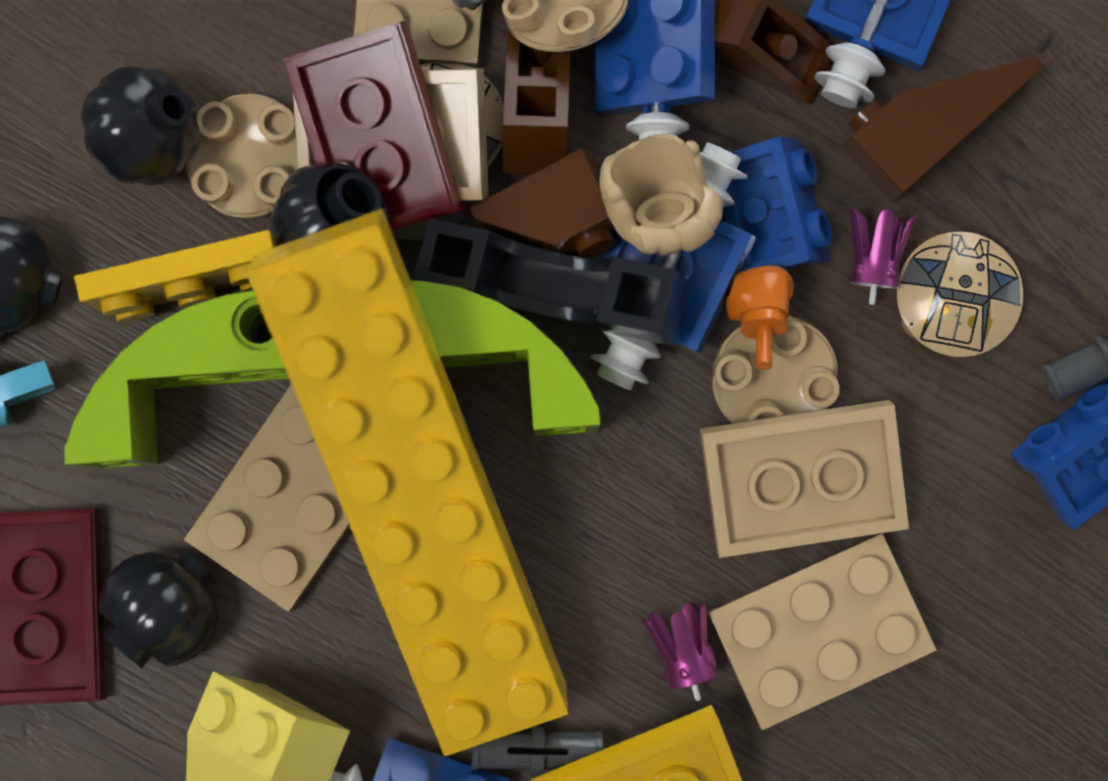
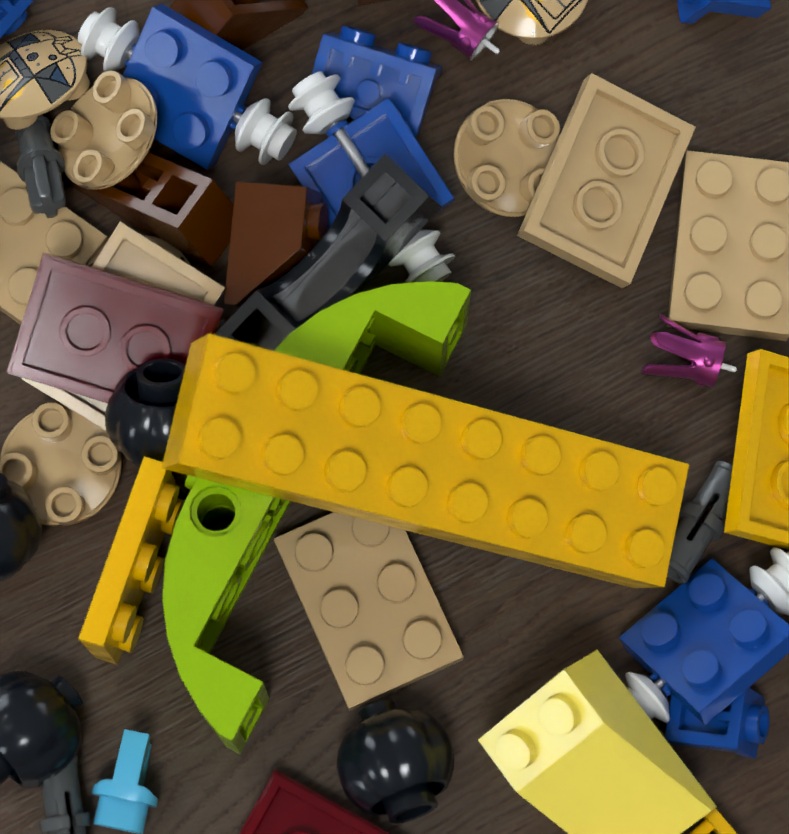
camera: 60 degrees left, 10 degrees down
(660, 195) = (316, 139): tan hair -> none
(761, 304) = (448, 124): orange piece -> none

